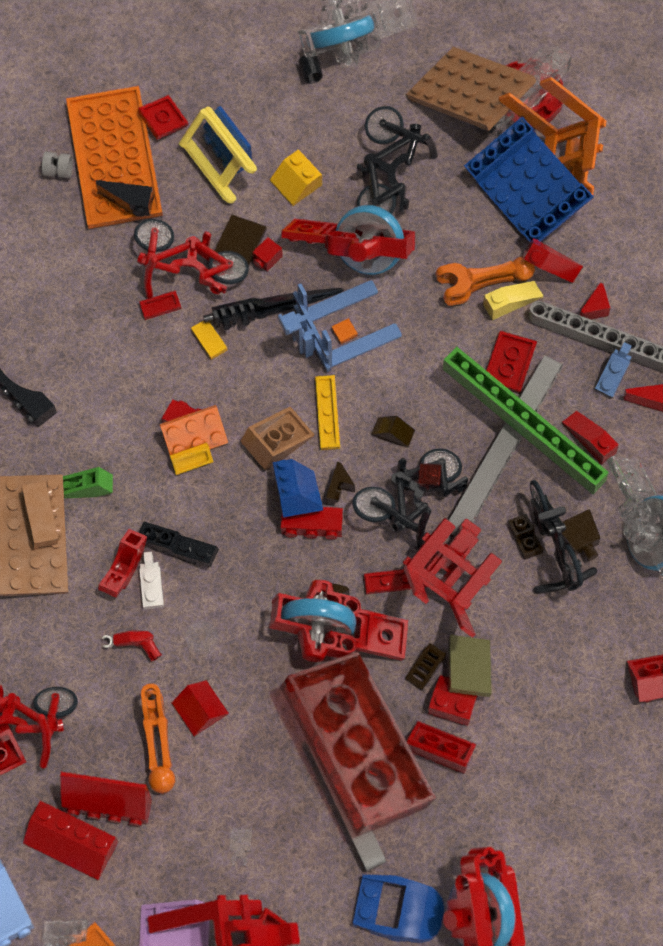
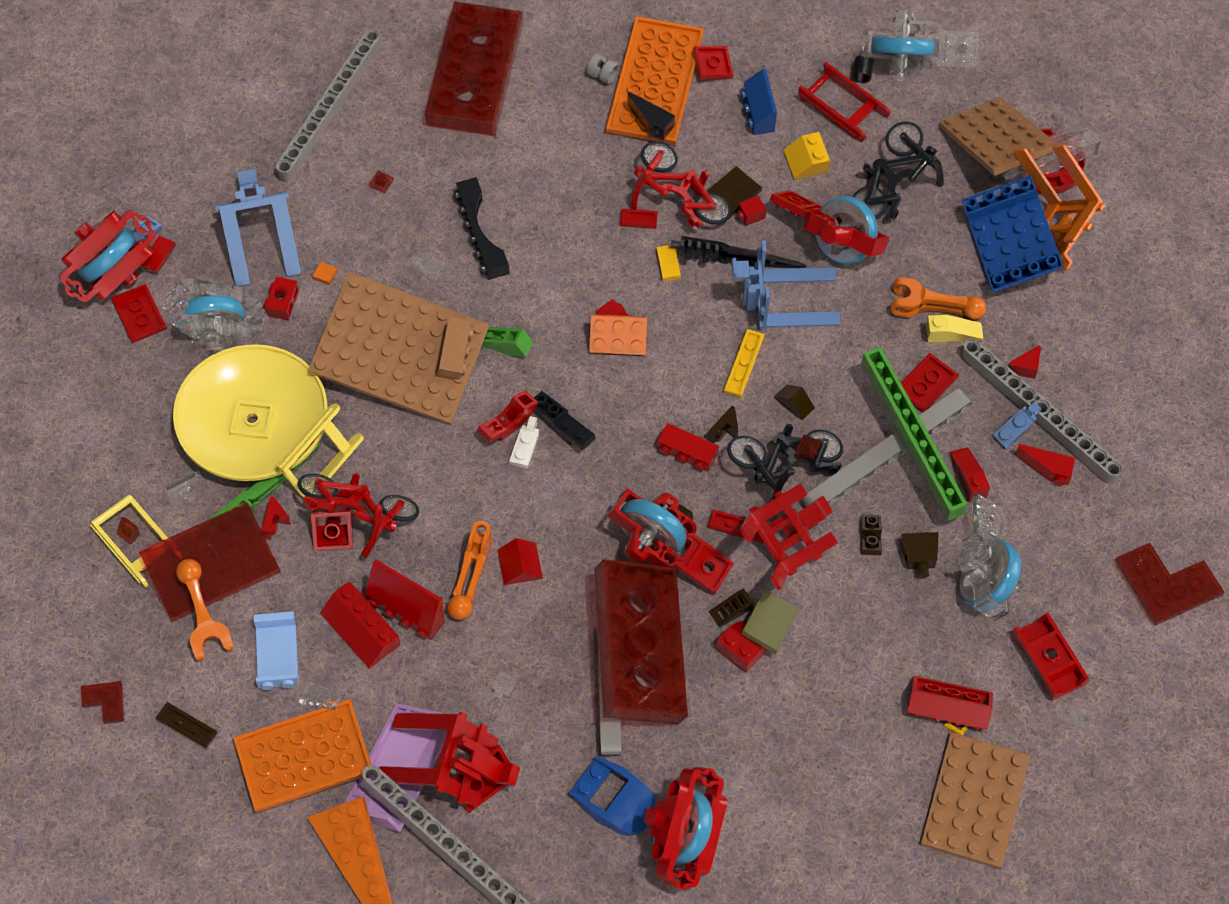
camera: 20 degrees right, 5 degrees down
(135, 638) = (492, 484): red arm -> none
(191, 458) = (606, 355): yellow tile -> none
(240, 157) = (762, 120): light yellow piece -> none
(276, 437) = (688, 365): medium nougat slope -> none
(296, 488) = (685, 413): blue slope -> none
(323, 130) = (851, 124): none -> red piece
(344, 331) = (790, 301): orange tile -> none
(441, 747) = (713, 679): red slope -> none
(550, 524) = (893, 530): black piece -> none
(551, 261) = (1003, 310): red slope -> none

